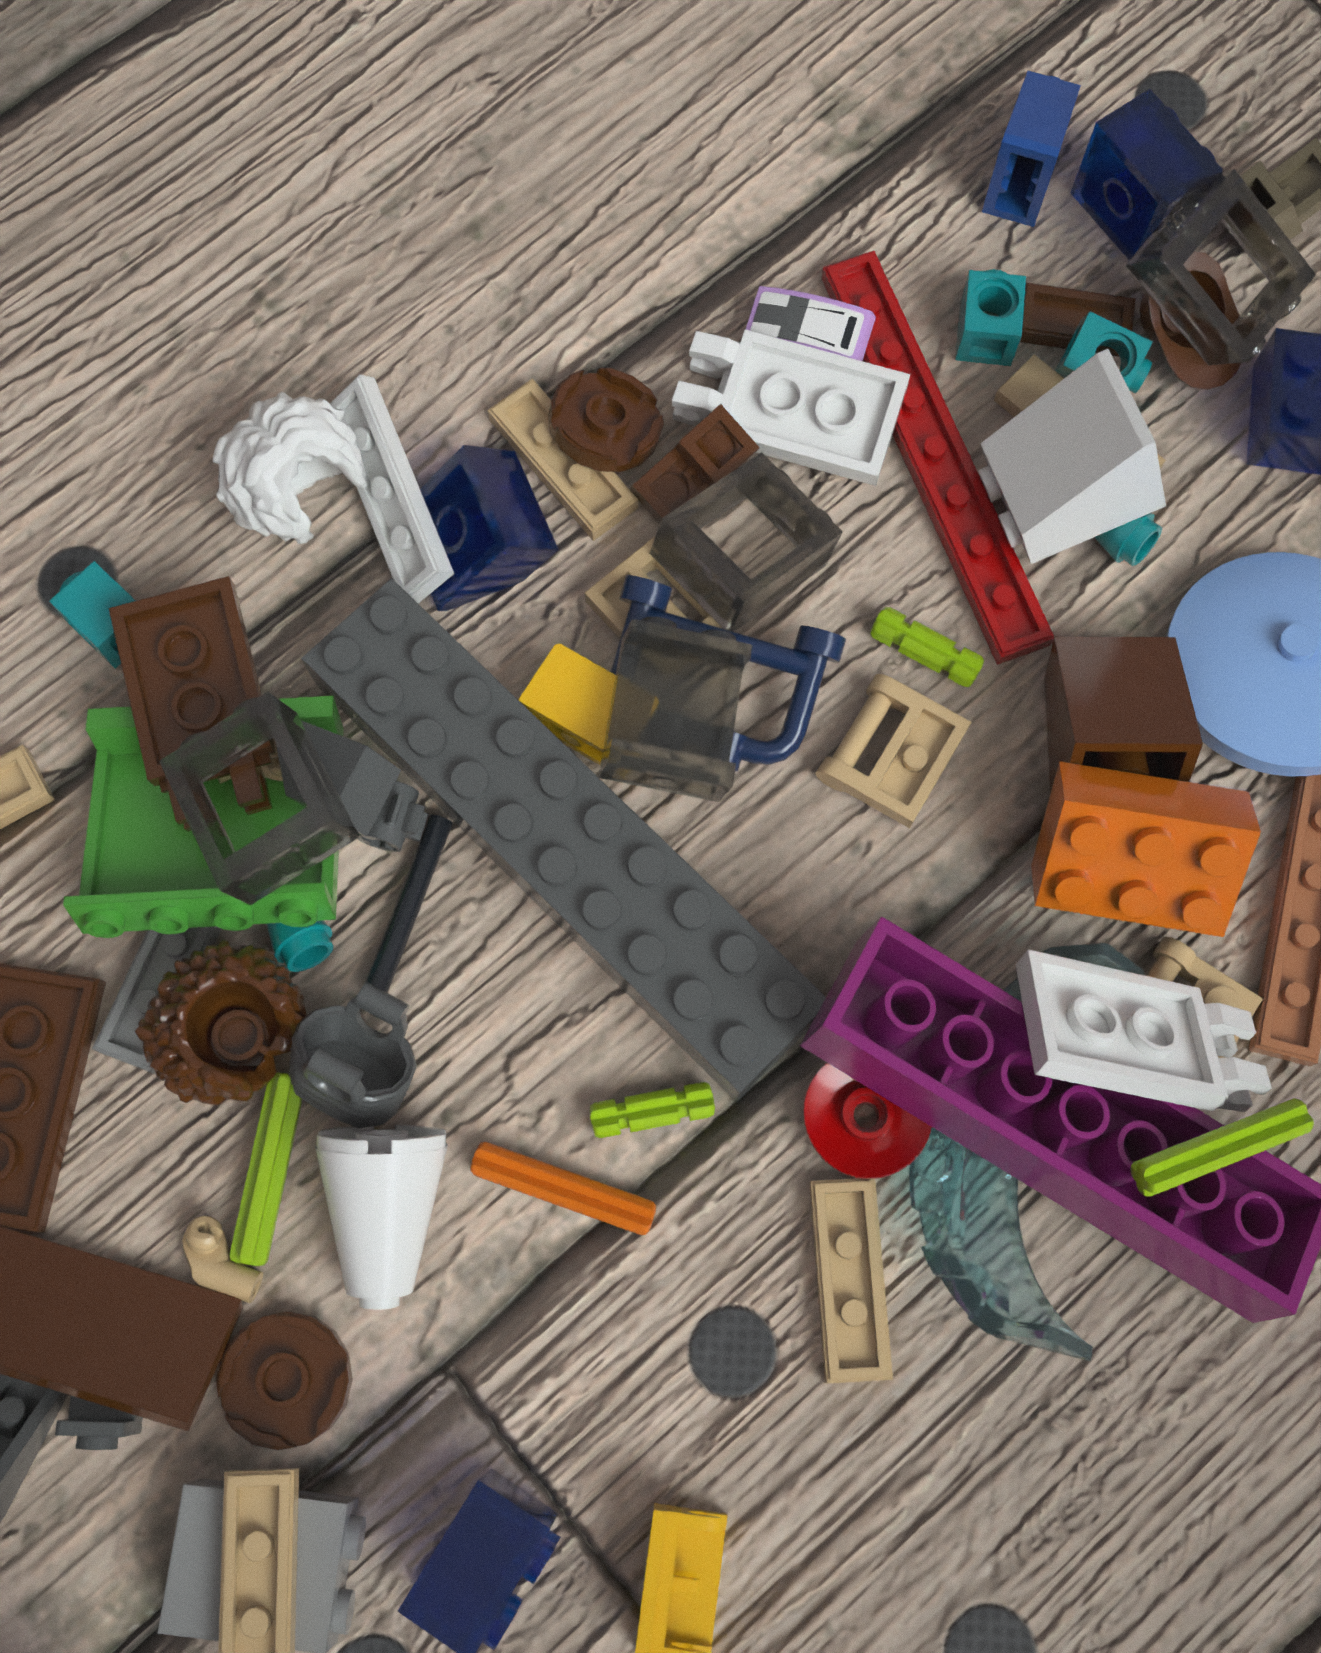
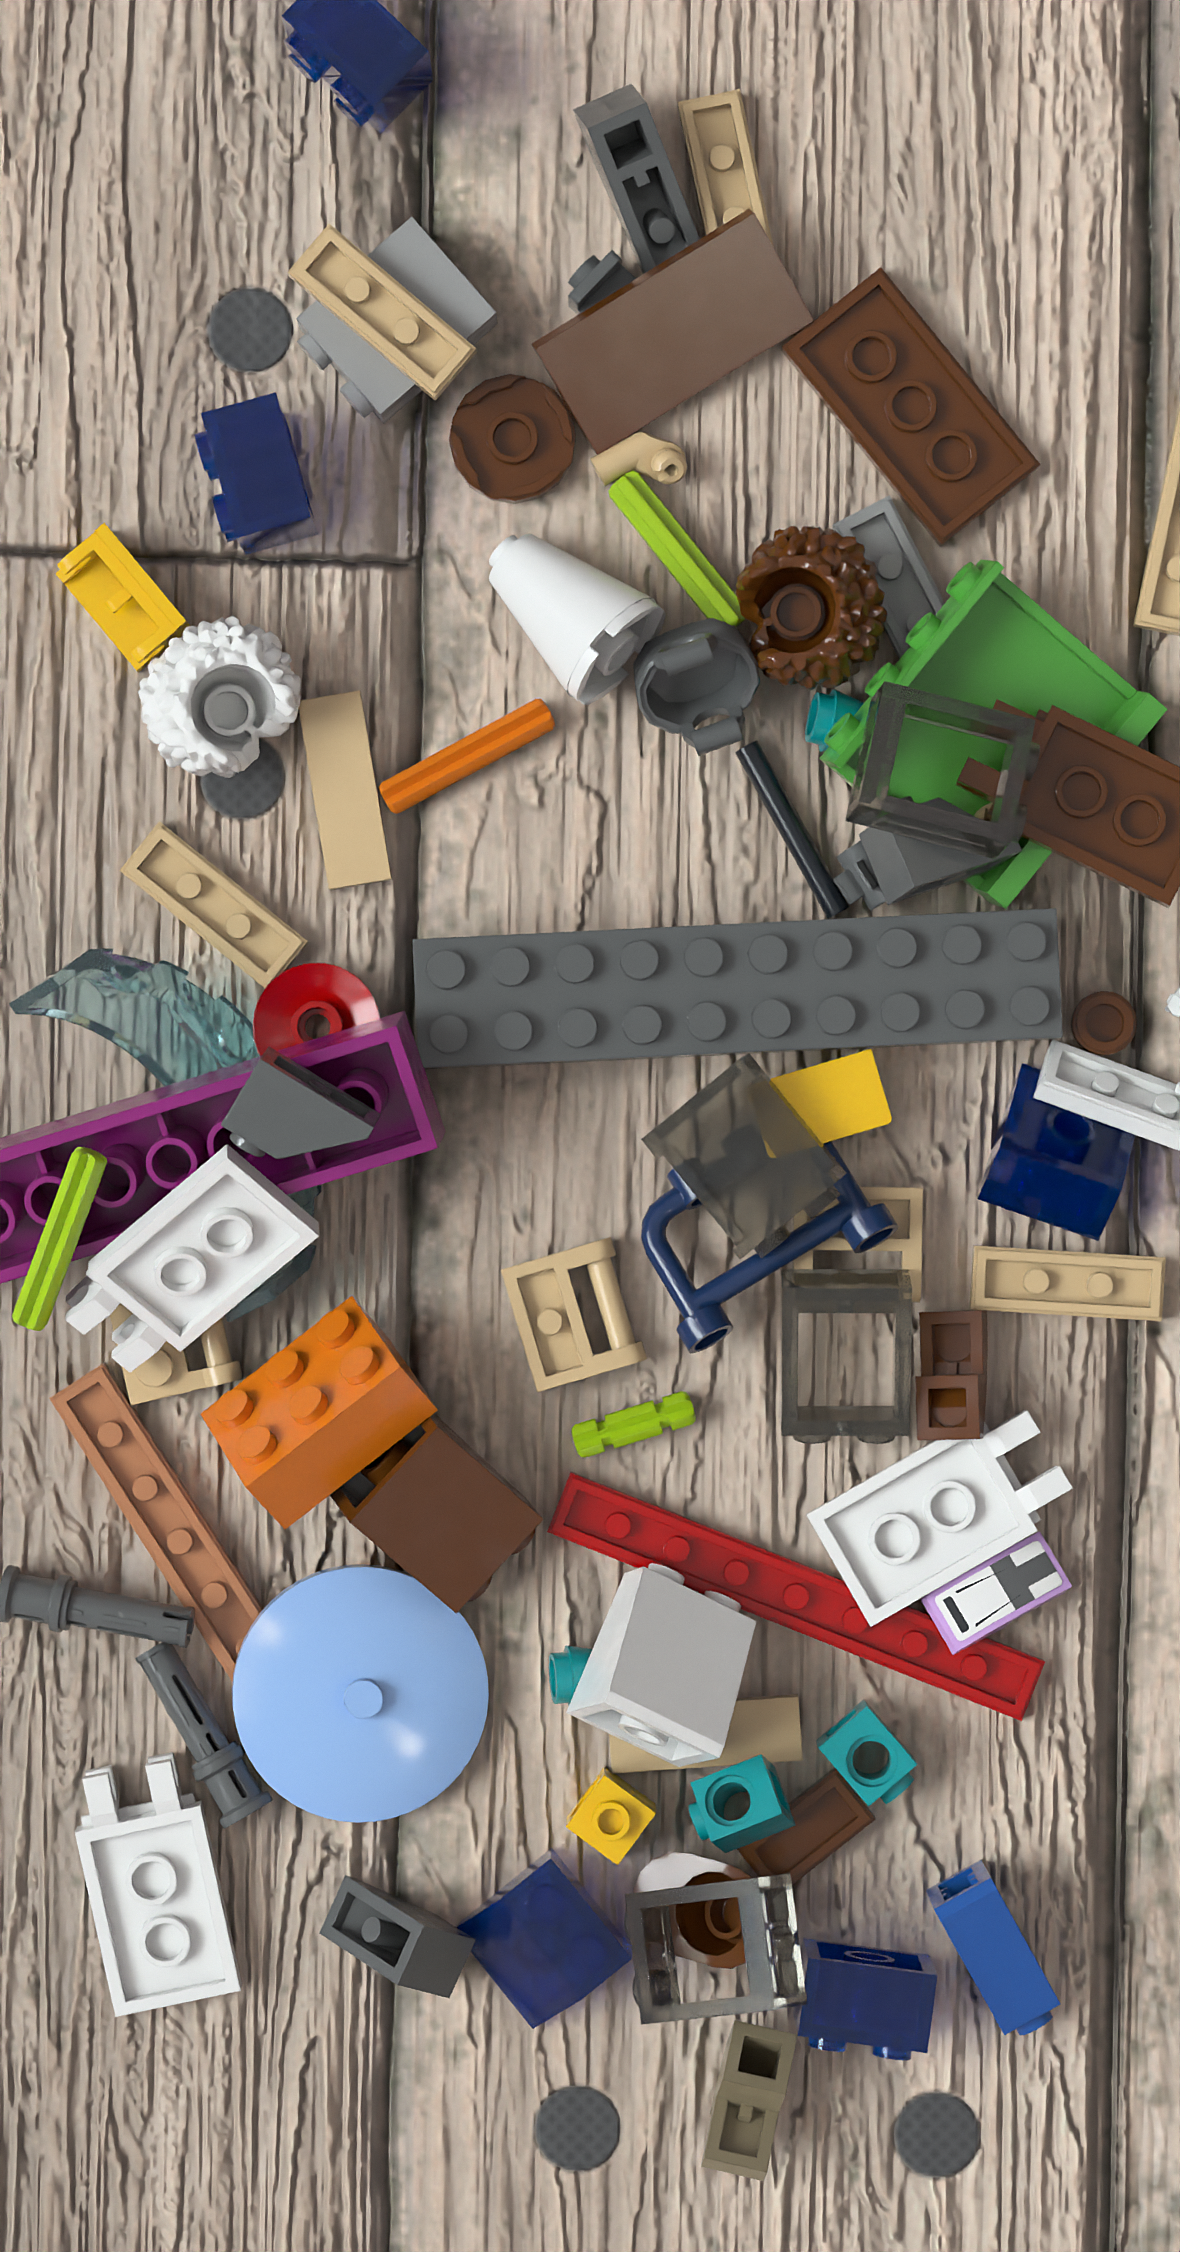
camera: 135 degrees right, 15 degrees up
(358, 577) = (1103, 1023): none -> reddish brown tile
(605, 420) = (1065, 1346): reddish brown tile -> none
(652, 1109) = (465, 872): lime axle -> none
(671, 1259) = (344, 790): none -> tan tile
(689, 1426) = (218, 695): none -> white hair
(962, 1040) = (294, 1111): none -> dark grey slope
(1195, 431) = (611, 1815): none -> yellow brick

